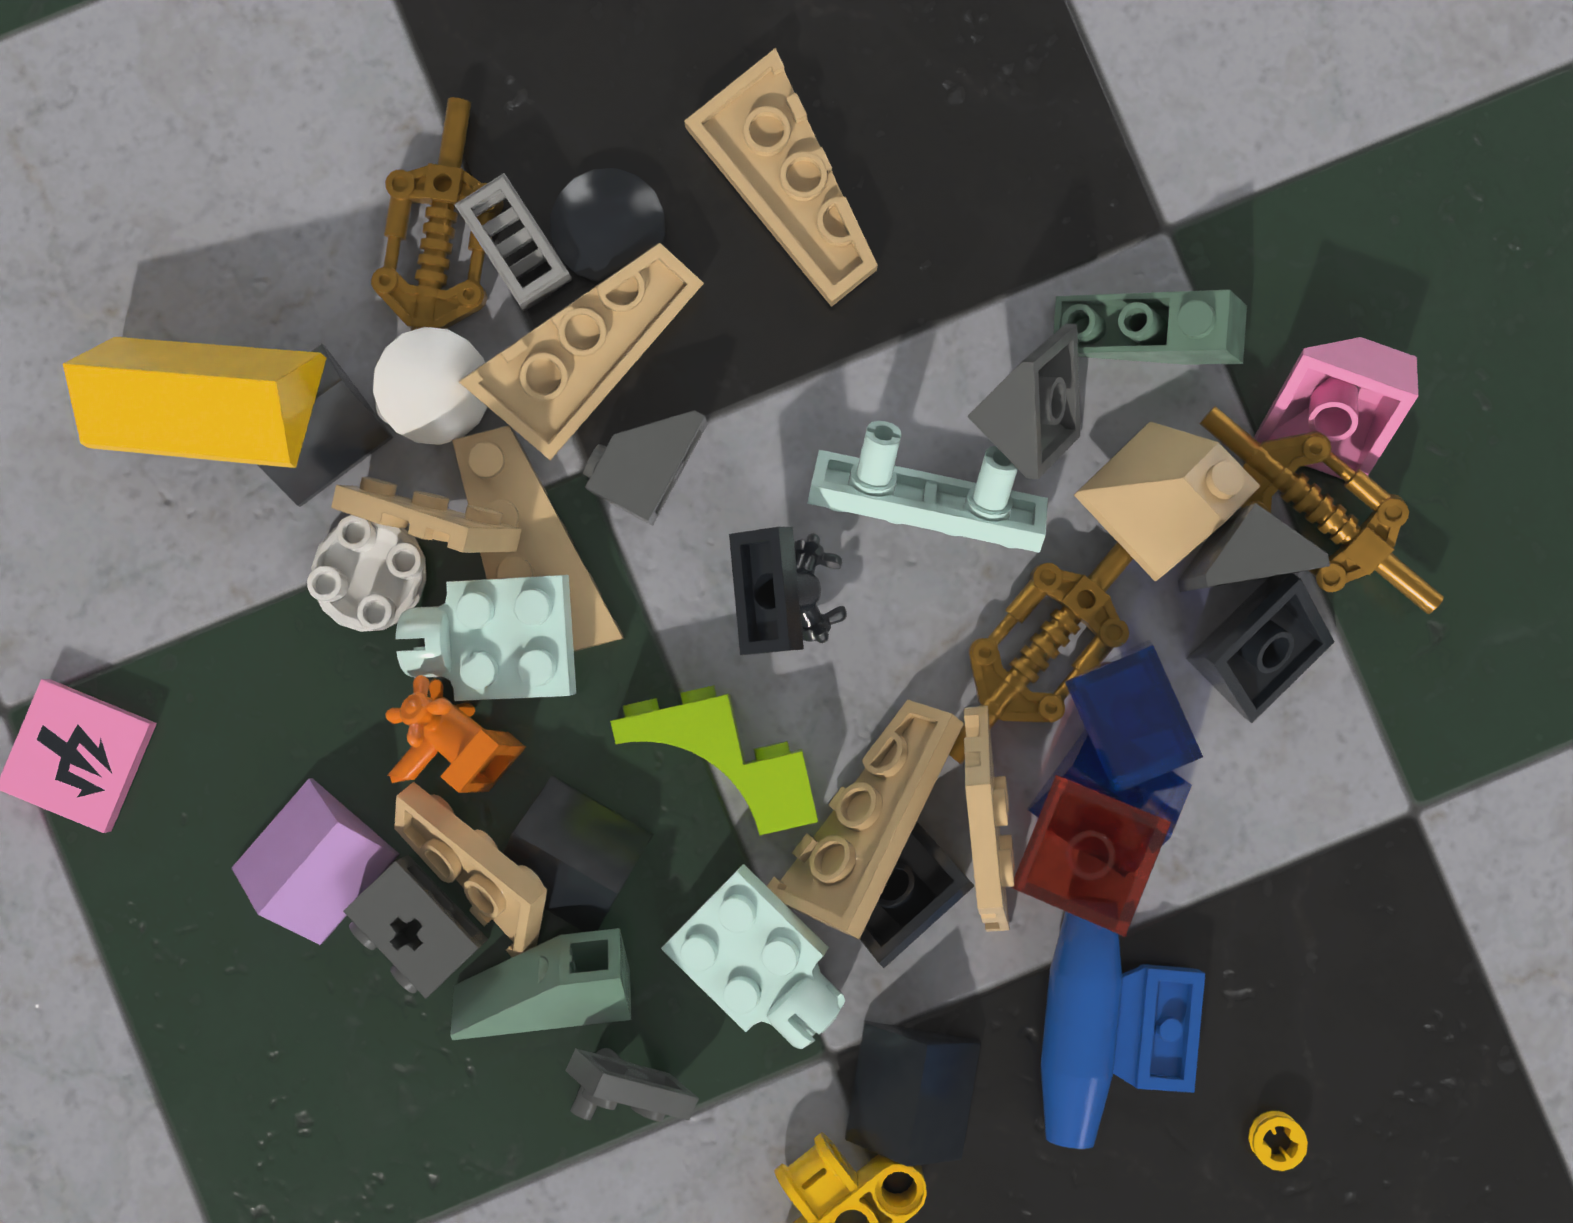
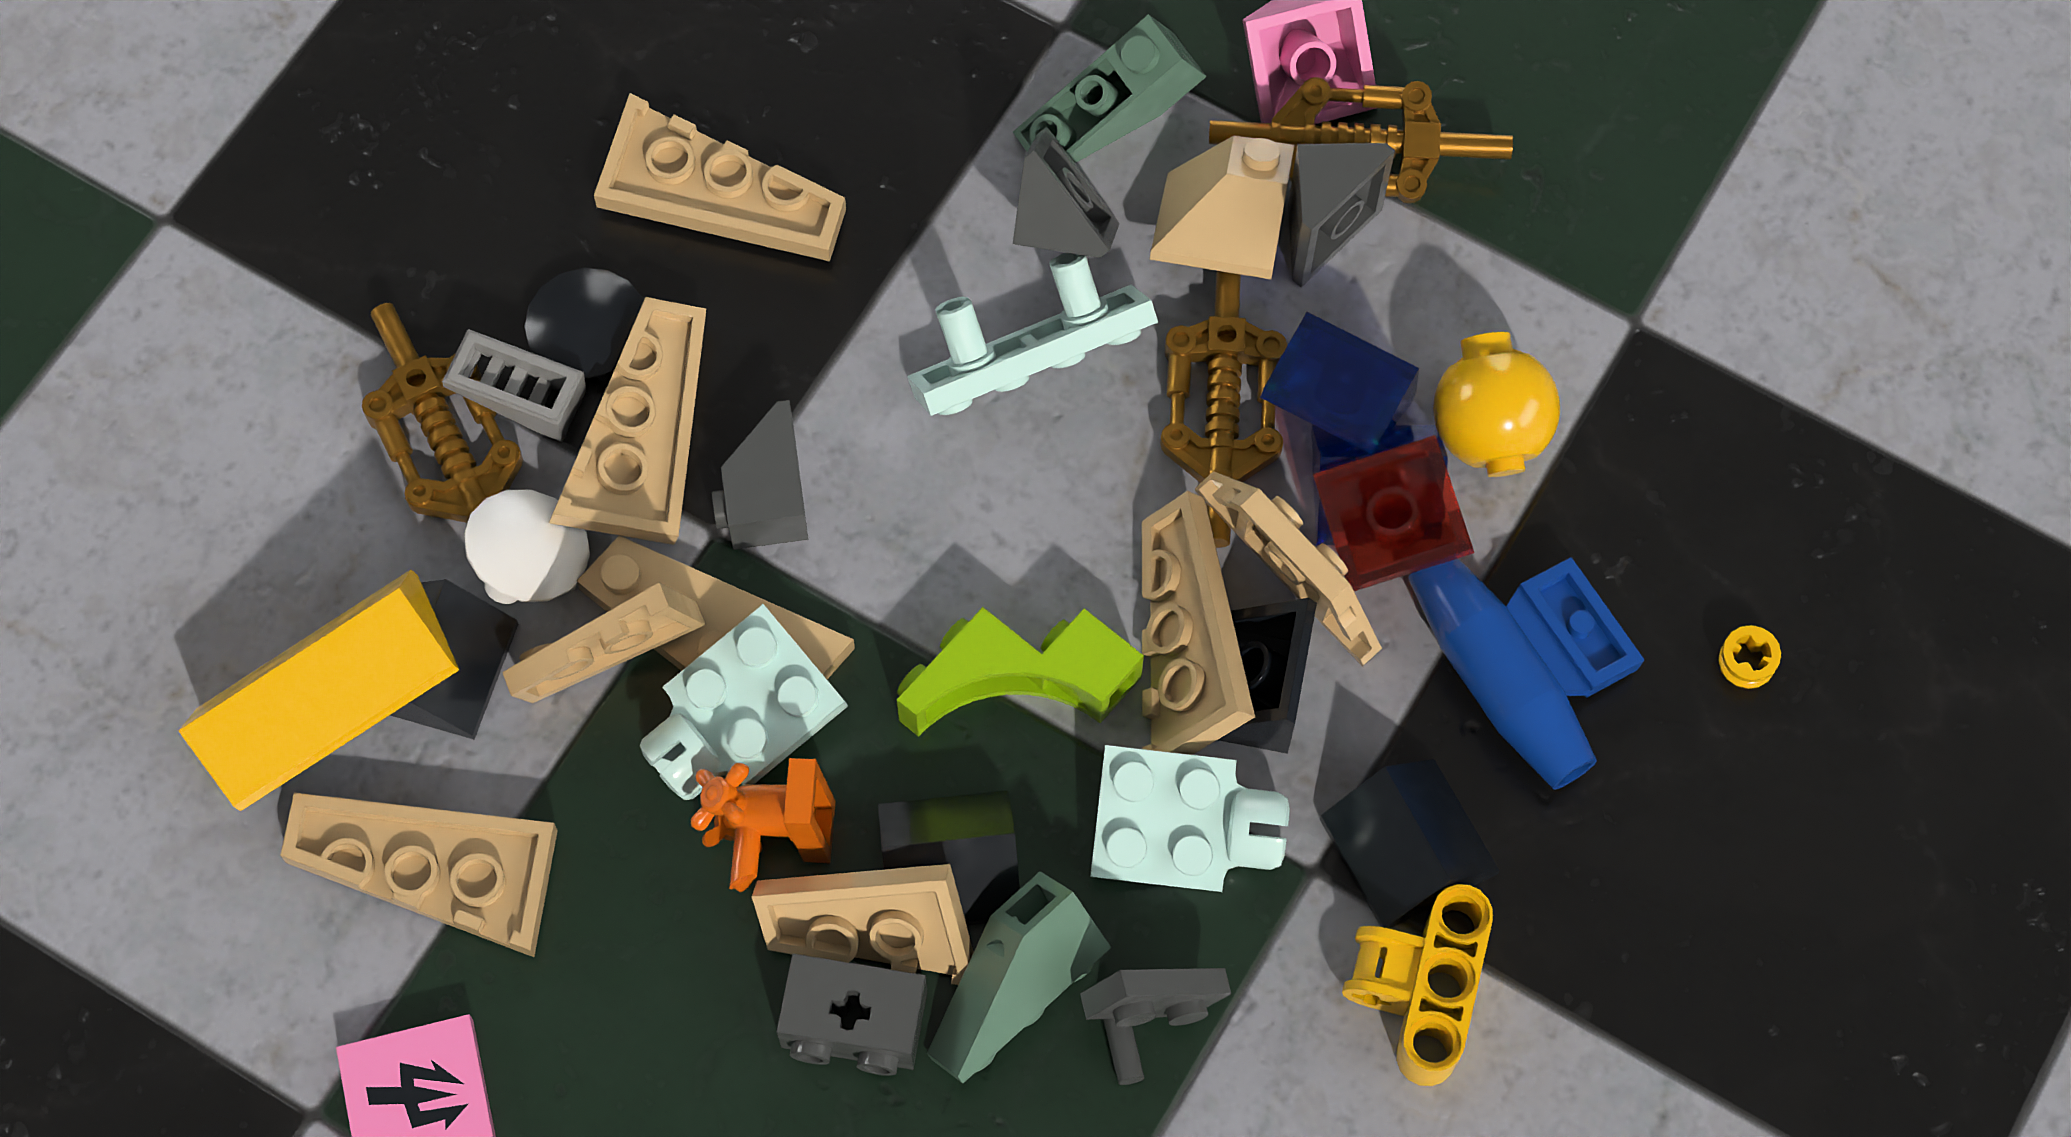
camera: 40 degrees left, 20 degrees down
(211, 600) = (440, 863): none -> tan wing
(311, 863) = (713, 1031): lavender slope -> none
(367, 574) = (581, 744): white dish -> none
(779, 590) = (958, 488): black piece -> none
(1243, 819) = (1496, 405): none -> yellow brick
(1263, 645) = (1403, 273): black slope -> none

